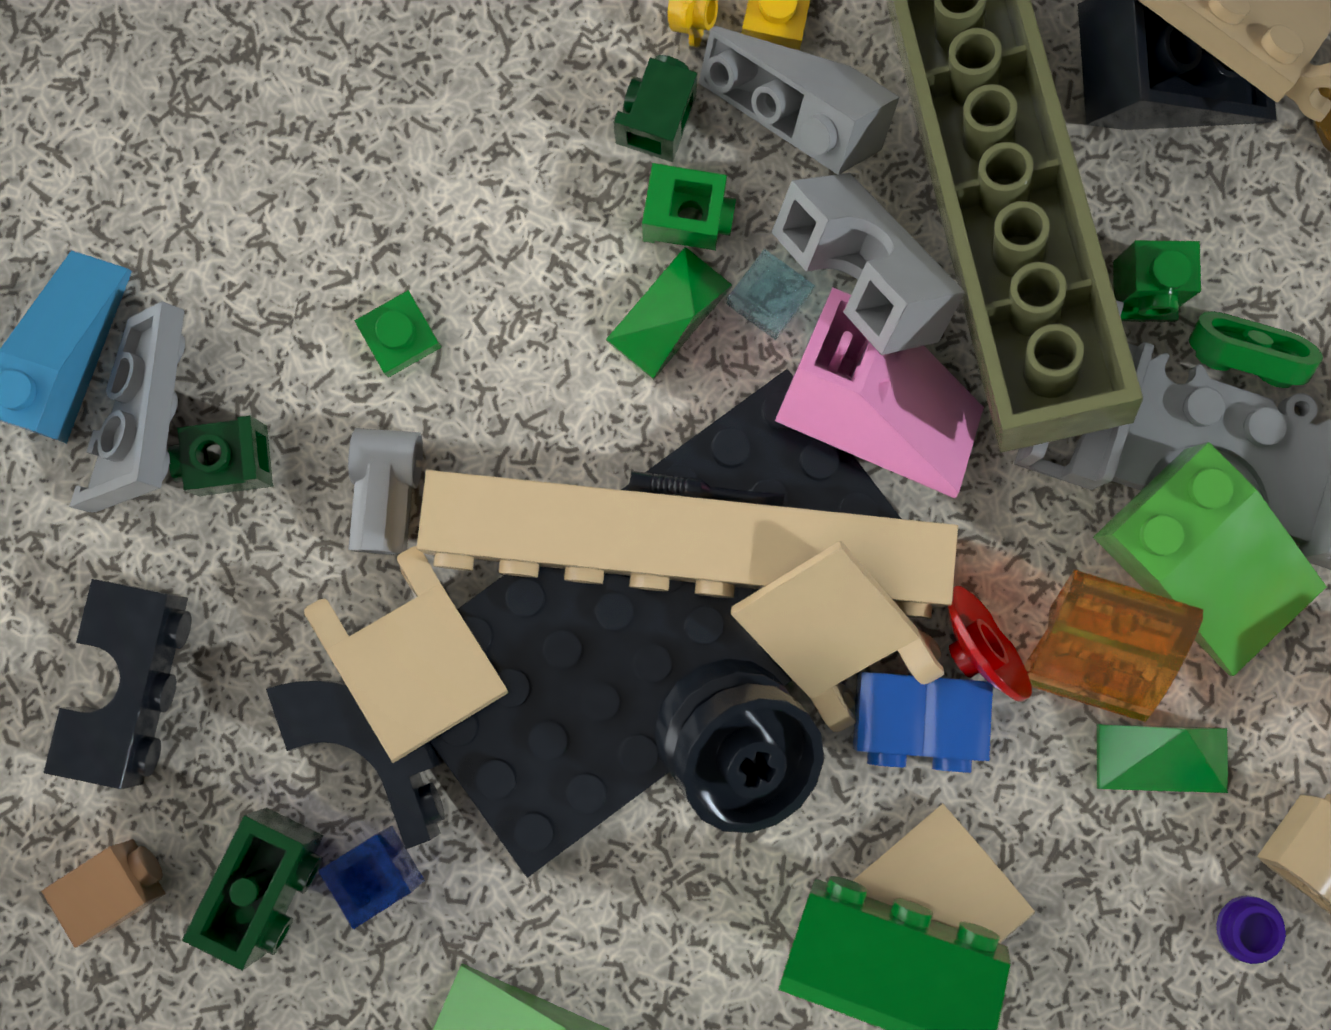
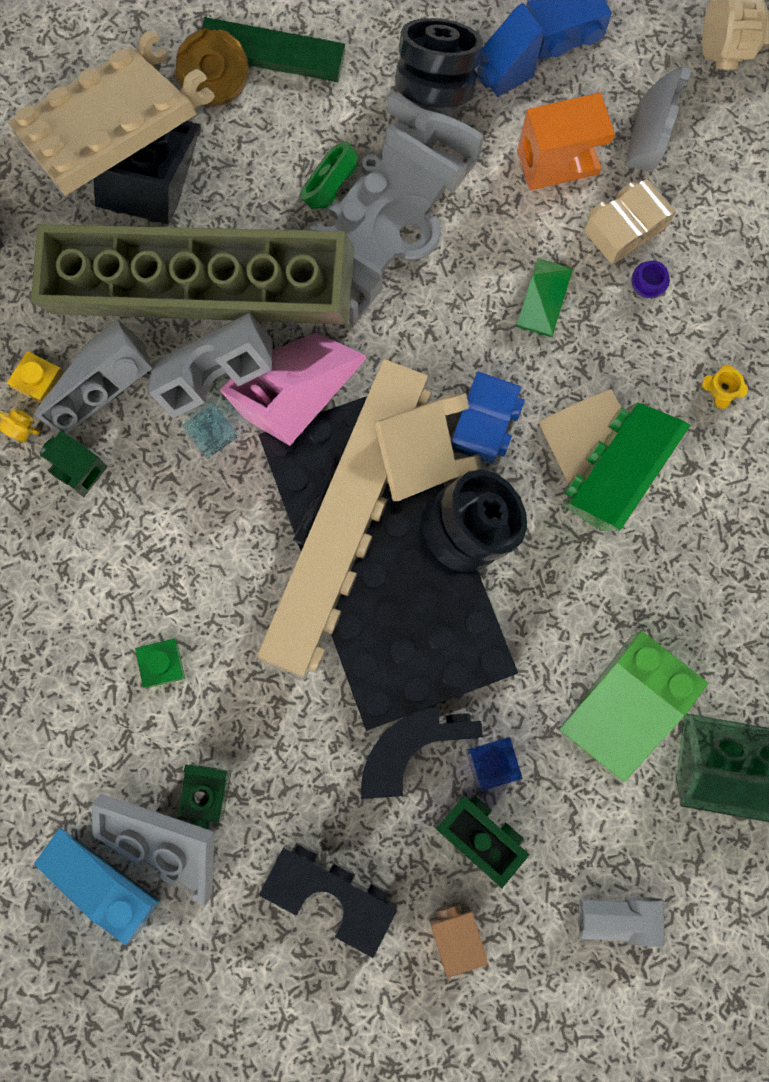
camera: 80 degrees left, 5 degrees down
(384, 477) = (249, 694): light grey piece -> none
(412, 667) = (372, 702): tan flag -> none
(669, 313) = (201, 495): green slope -> none
(678, 188) = (134, 450): green brick -> none
(984, 647) = (458, 371): red dish -> none
(1112, 645) = (475, 301): clear orange slope -> none
(1156, 279) = (272, 209): green brick -> none
(1217, 546) = (438, 233): bright green slope -> none

